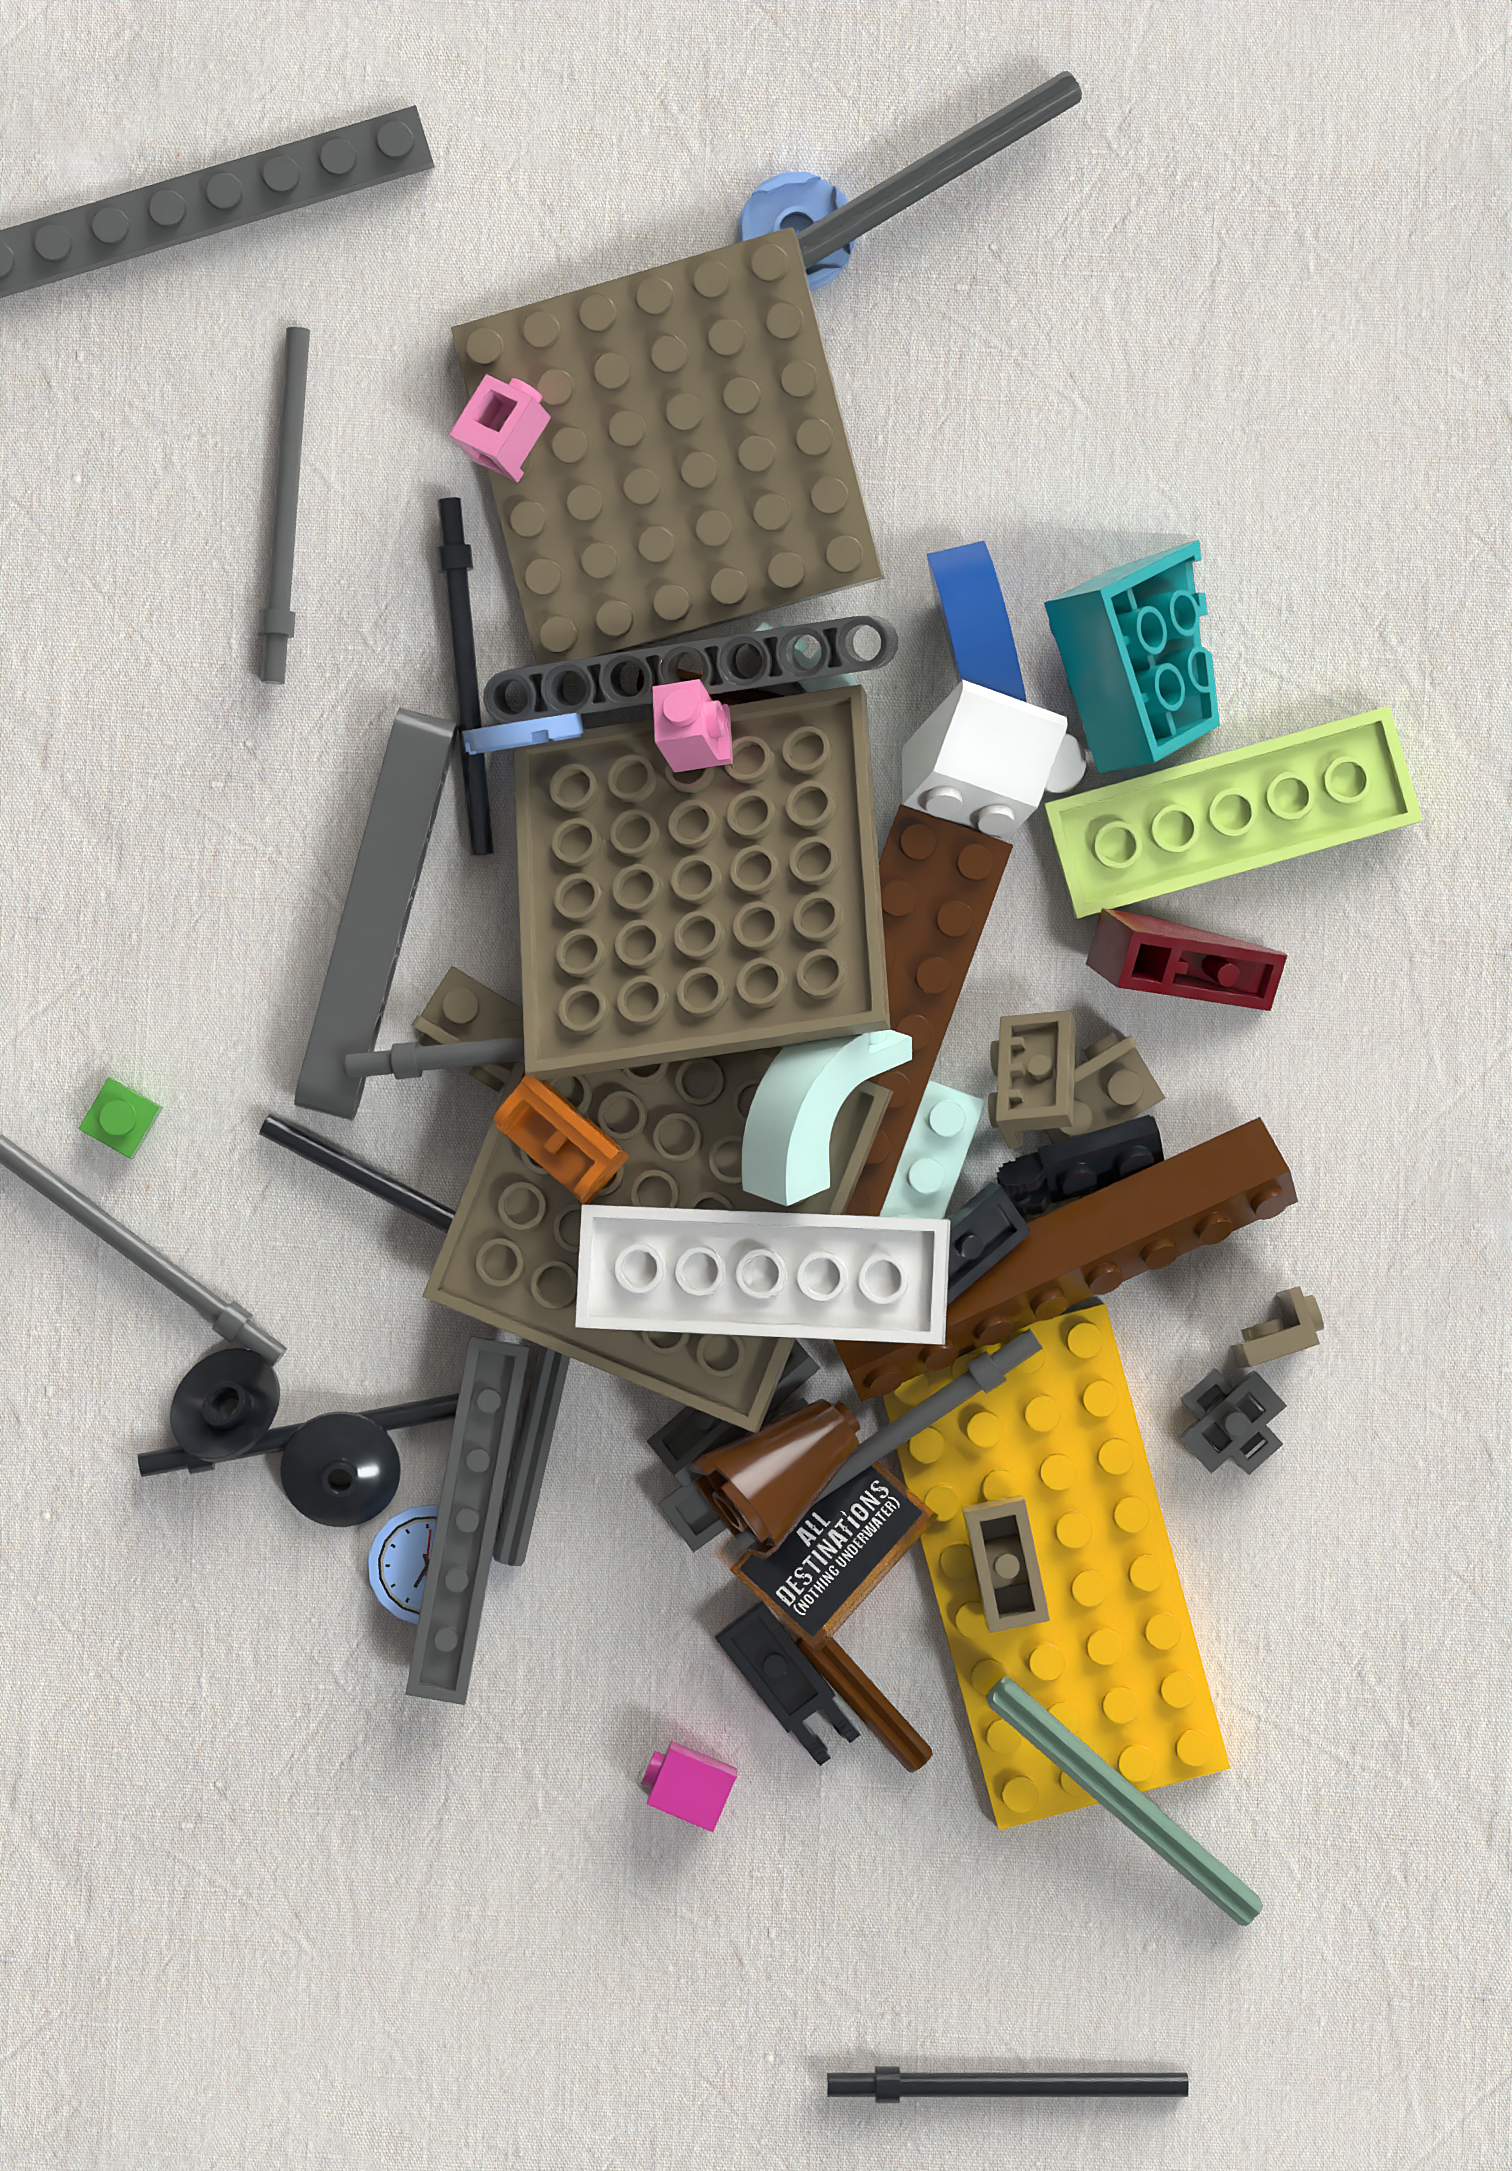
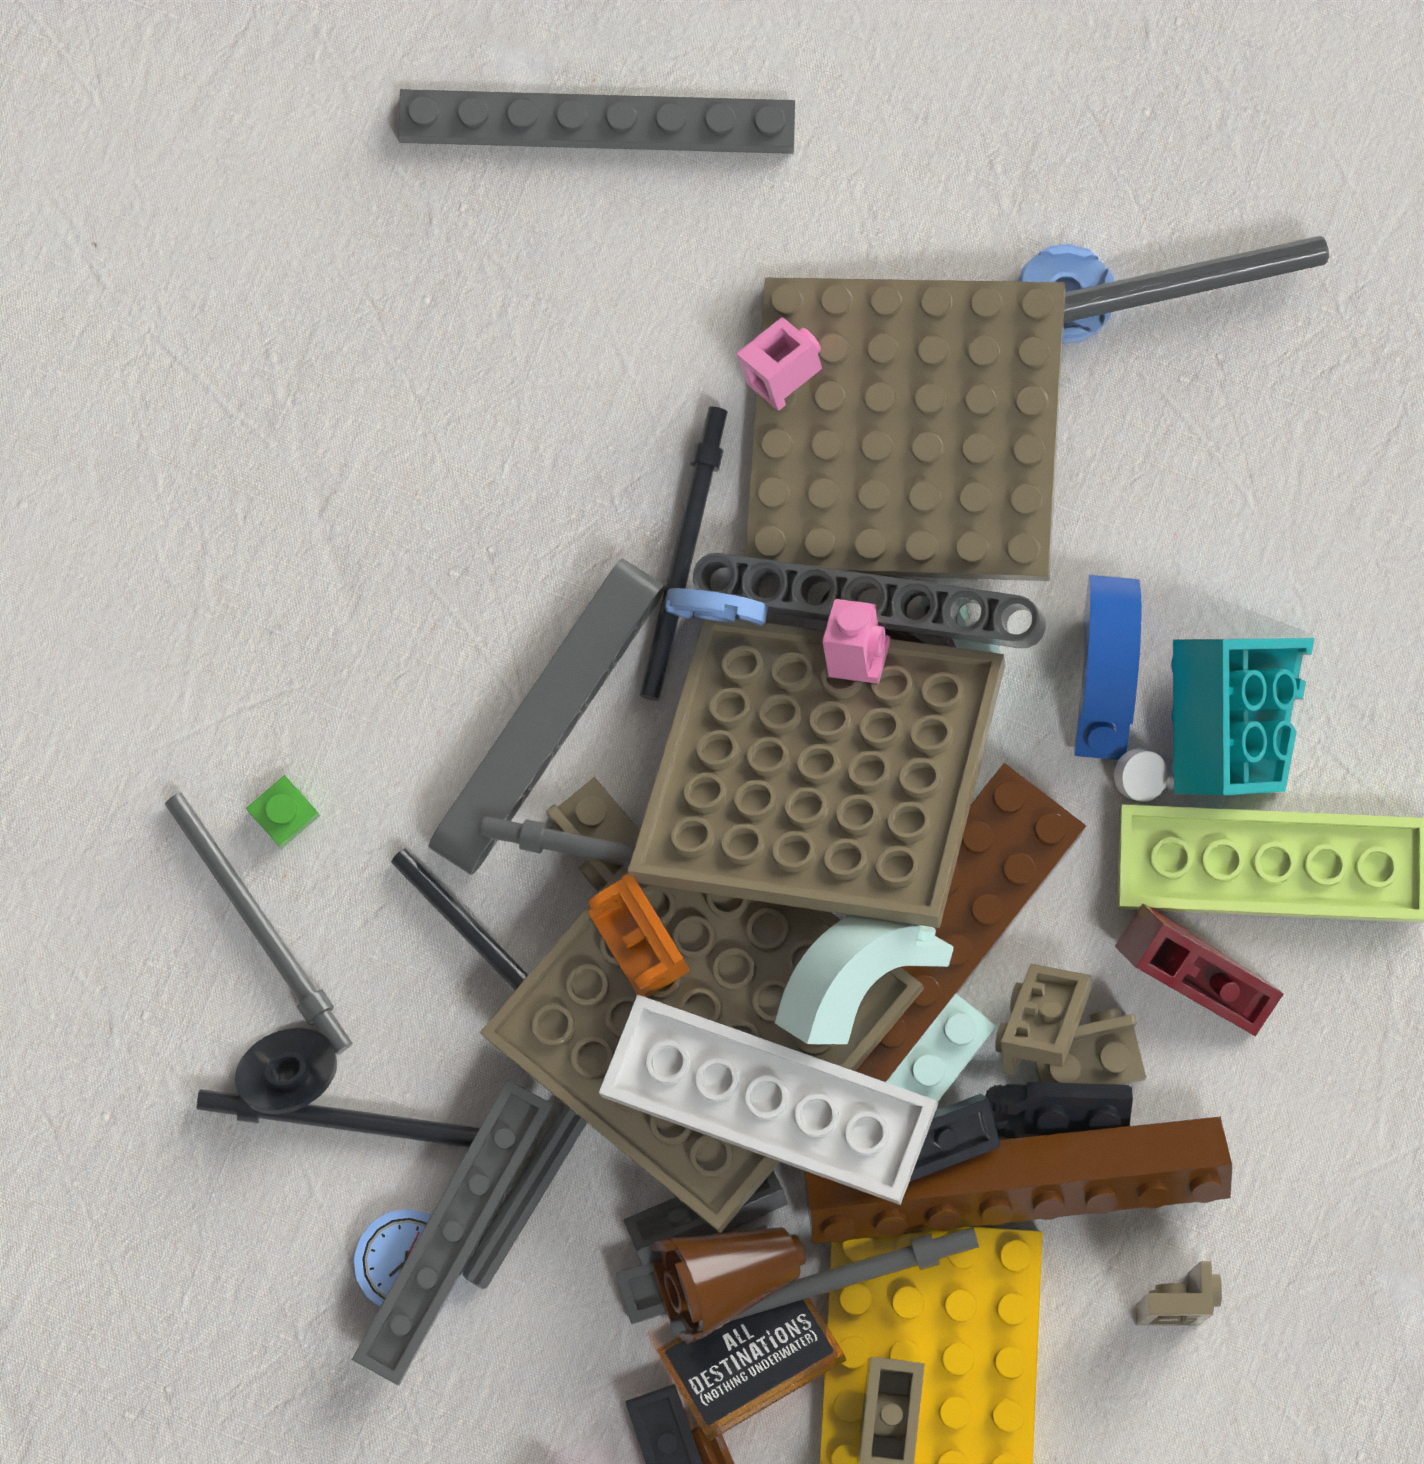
camera: 15 degrees right, 10 degrees down
(277, 620) = (548, 458): dark grey bar -> none
(345, 1443) = (366, 1132): black dish -> none
(981, 760) = (1082, 747): white slope -> none
(1232, 1422) = (1122, 1365): dark grey piece -> none

